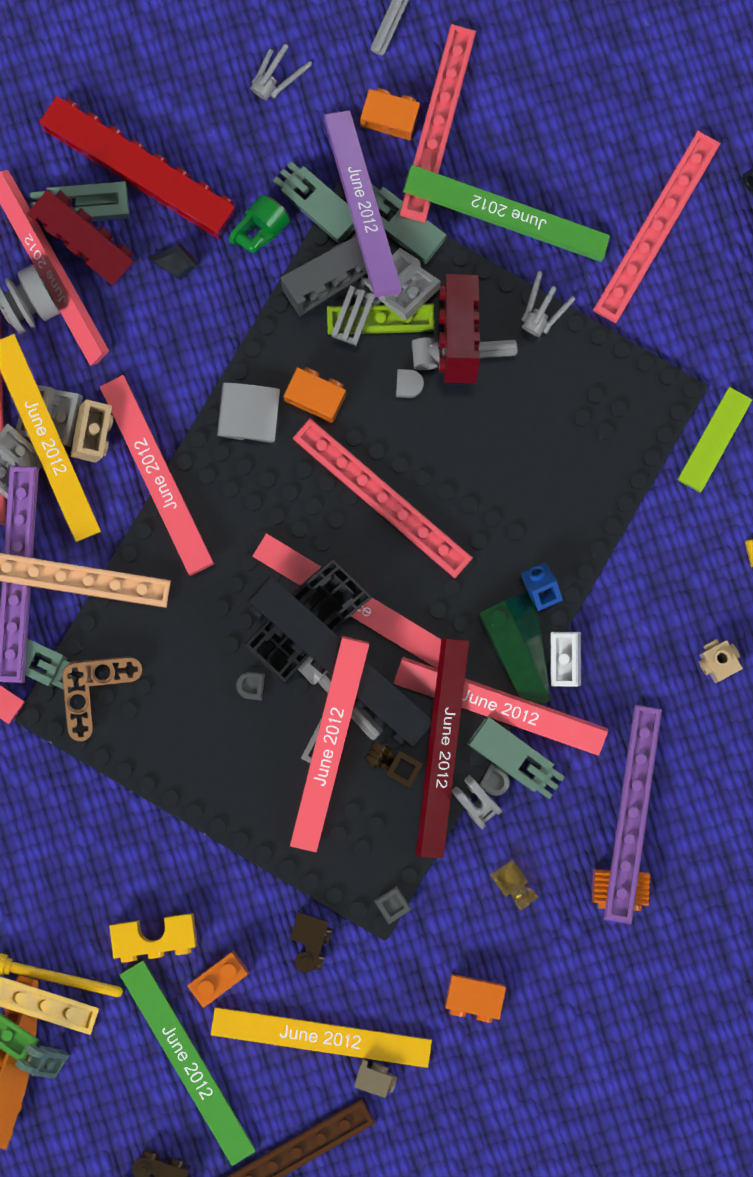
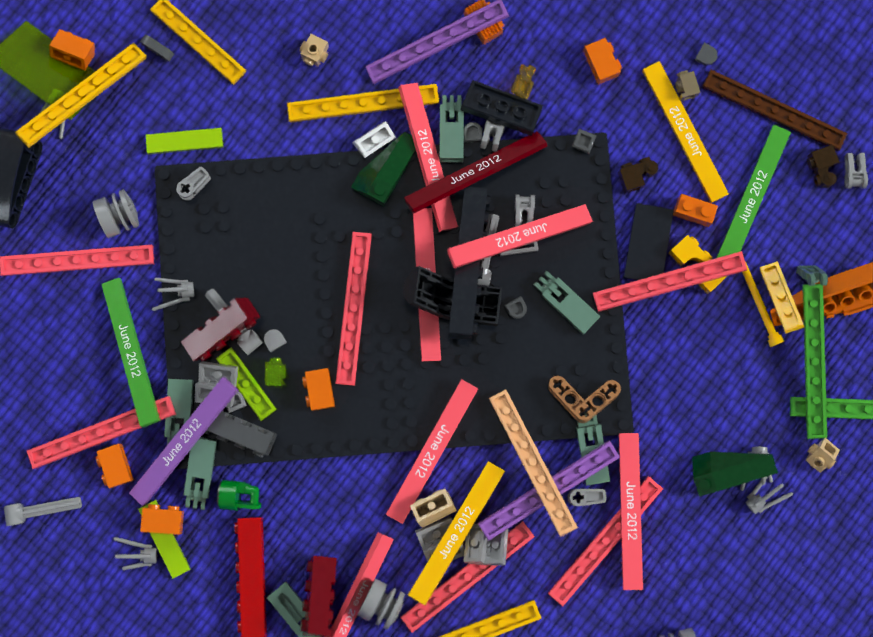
camera: 130 degrees left, 0 degrees up
(154, 886) = (670, 281): none -> coral tile
(175, 261) = (295, 533): black piece -> none
(206, 749) = (572, 307): none -> sand green hinge
(219, 896) = (648, 242): none -> black tile
(248, 412) = (357, 422): light grey slope -> none
(271, 115) = (169, 550): none -> lime tile
(291, 124) = (162, 520): none -> orange brick
(345, 336) = (240, 403): light grey tile -> none
(359, 780) = (520, 207): none -> light grey piece
(369, 358) = (275, 372): none -> clear neon green window
(396, 1132) = (706, 55): none -> dark grey tile
(399, 767) = (504, 189): dark brown brick -> none
(500, 835) = (501, 107): none -> black tile
(541, 586) = (342, 179): blue brick -> none
(623, 668) = (355, 104): none -> yellow tile
(655, 416) = (194, 183): none -> light grey piece
(679, 301) = (116, 213): none -> light grey wheel

